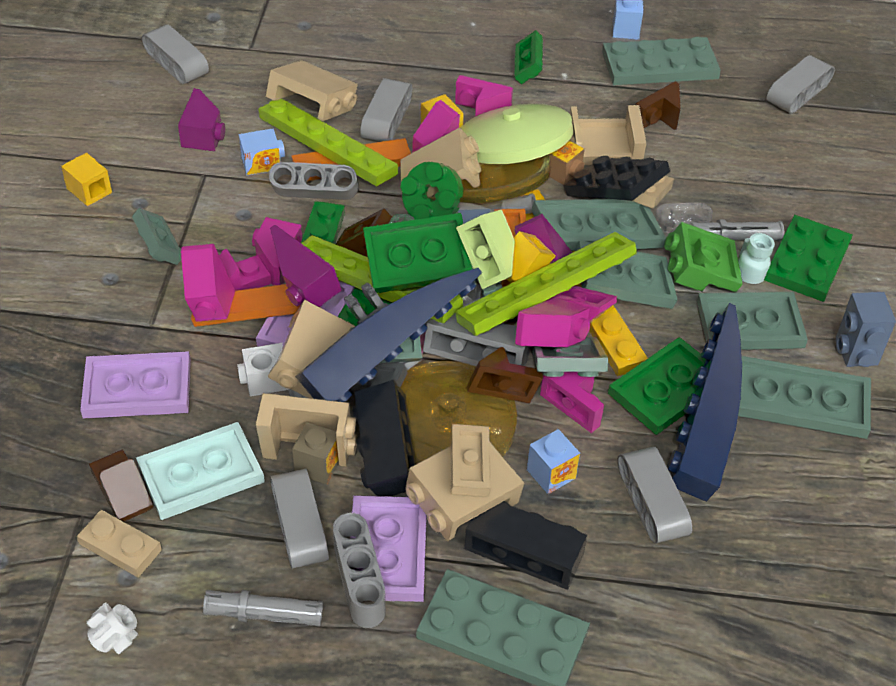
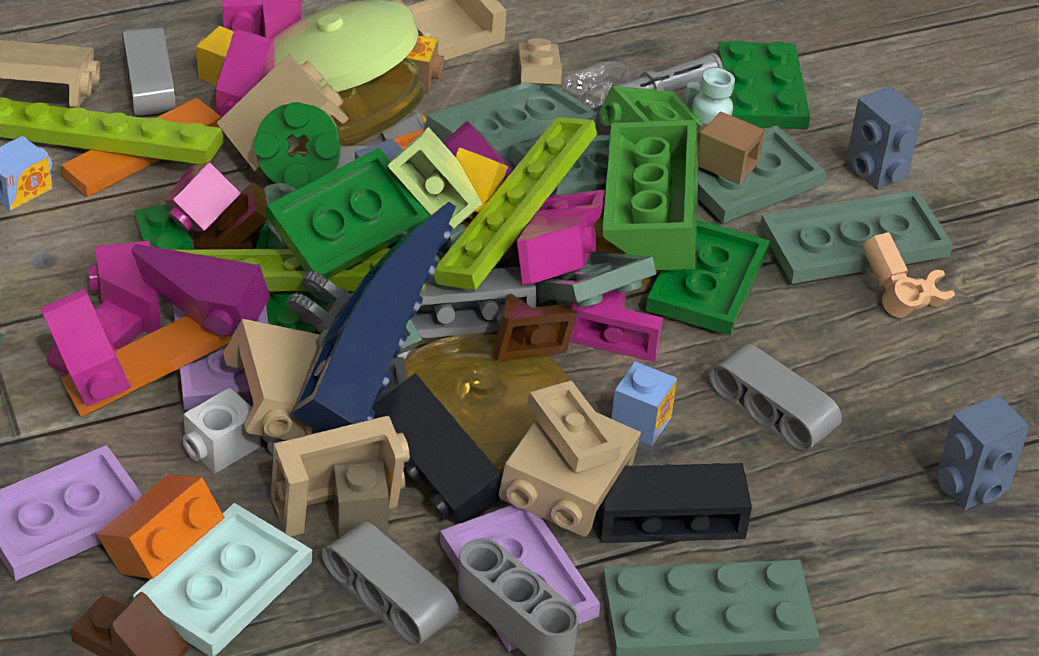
camera: 30 degrees left, 5 degrees down
(180, 419) = (160, 526): none -> orange brick
(303, 171) = (106, 199): light grey beam -> none
(351, 207) = (200, 197): none -> slope
(617, 178) = (499, 61): black plate -> none
(655, 311) = (653, 191): none -> bright green slope
(711, 411) = (782, 278): dark blue slope -> none
(740, 290) = (729, 147): none -> medium nougat brick
(774, 601) = (981, 452): none -> sand blue brick
(807, 454) = (902, 292): none -> light nougat bar

